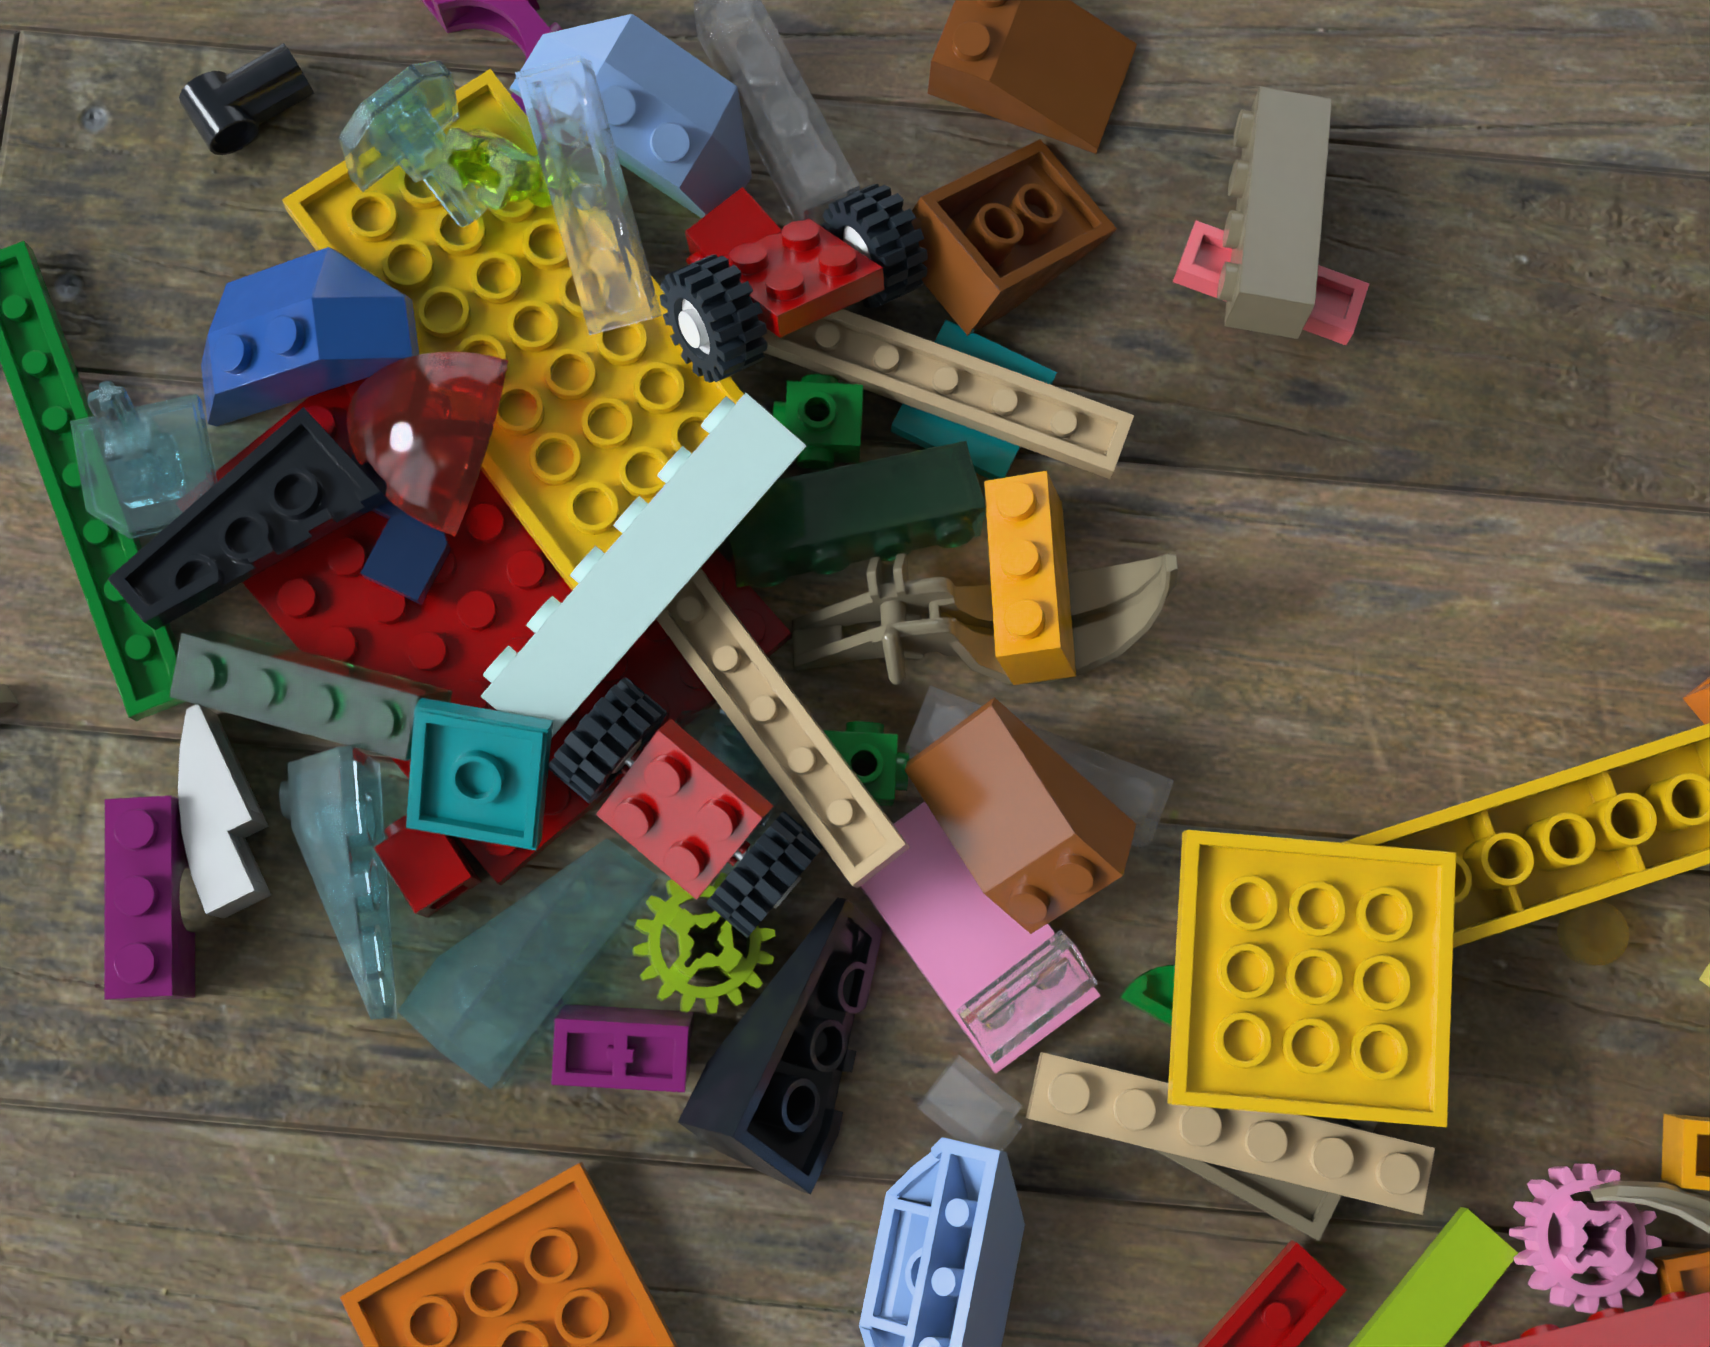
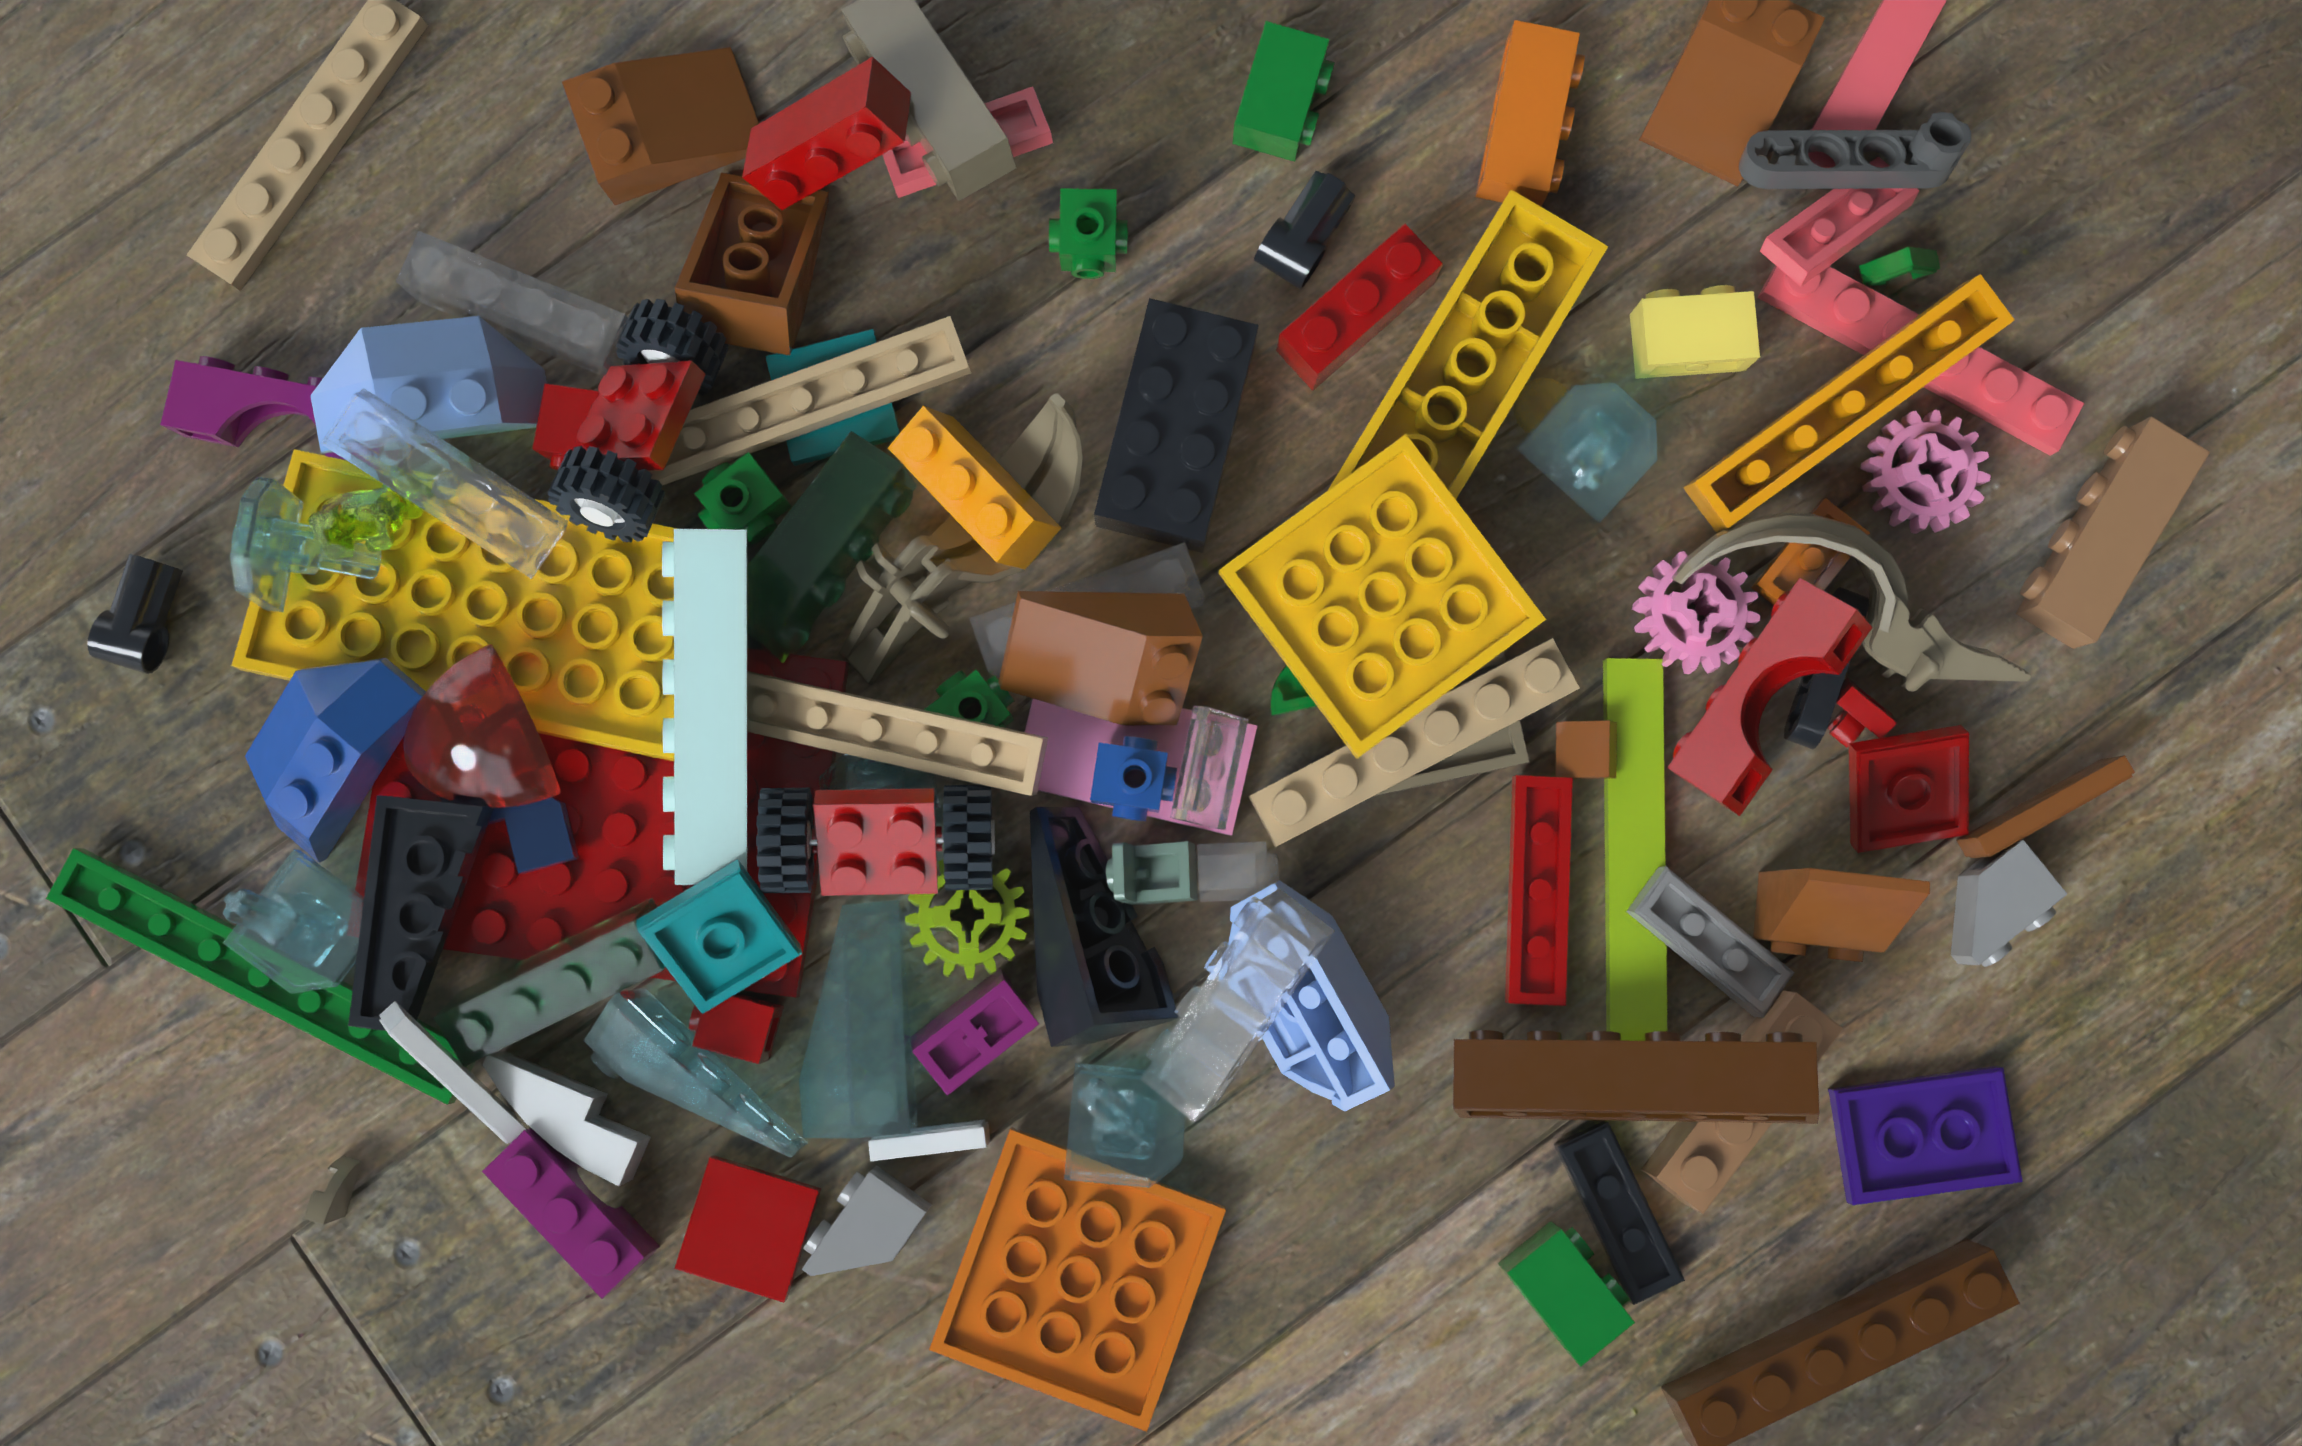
camera: 35 degrees left, 5 degrees up
(154, 693) = (451, 1073): none -> white tile
(281, 1048) = (748, 1228): none -> red tile
(383, 1142) = (870, 1228): none -> light grey slope
(503, 1112) = (931, 1140): none -> white tile
(679, 1249) = (1120, 1129): none -> clear light blue piece
(875, 1228) = (1236, 1003): none -> clear brick
(898, 1046) = (1153, 873): none -> sand green bracket
(952, 920) = (1116, 761): none -> blue brick
(1161, 177) = (827, 134): none -> red brick
(1250, 672) = (1175, 425): none -> black brick
(1314, 444) = (1088, 232): none -> green brick
(1380, 1275) = (1586, 749): none -> dark orange tile
(1493, 605) = (1299, 240): none -> black piece
(1500, 706) = (1358, 307): none -> red brick
(1584, 465) = (1281, 92): none -> green brick
(1613, 1007) = (1593, 445): none -> clear light blue piece

